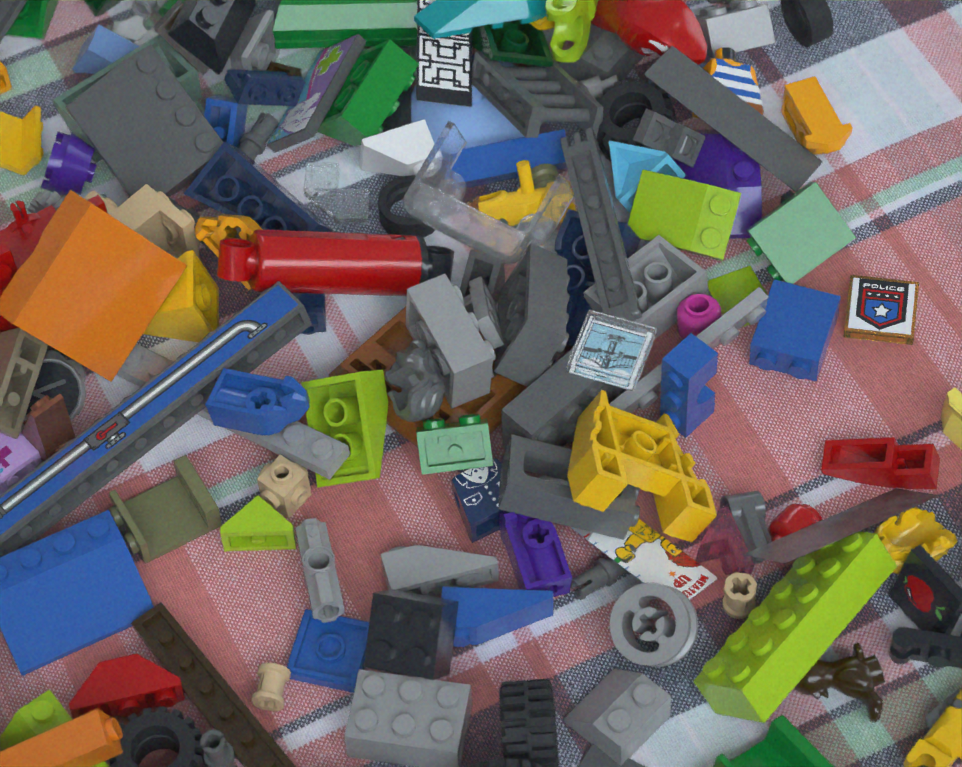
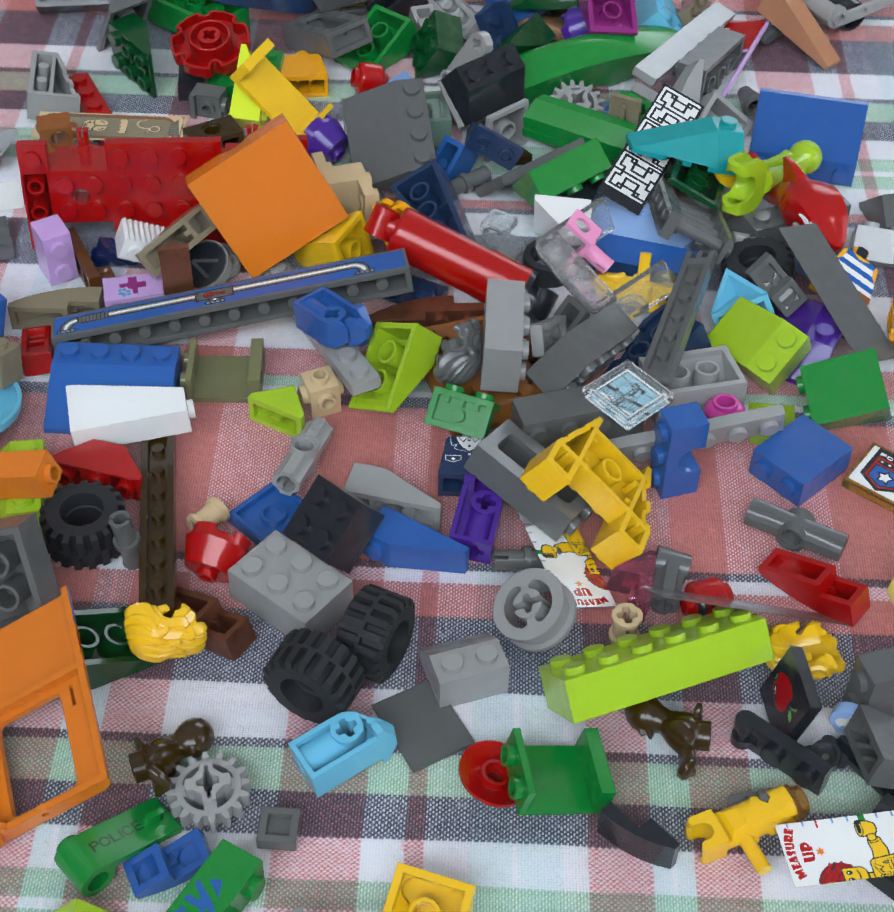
camera: 25 degrees right, 10 degrees down
(50, 46) = (367, 76): none -> red head
(110, 617) = (127, 413): none -> white slope
(313, 723) = (213, 551): none -> red cone
(339, 332) = (428, 311): none -> copper slope
(457, 181) = (588, 249): none -> bright pink bracket
(832, 410) = (796, 529): none -> dark grey piece

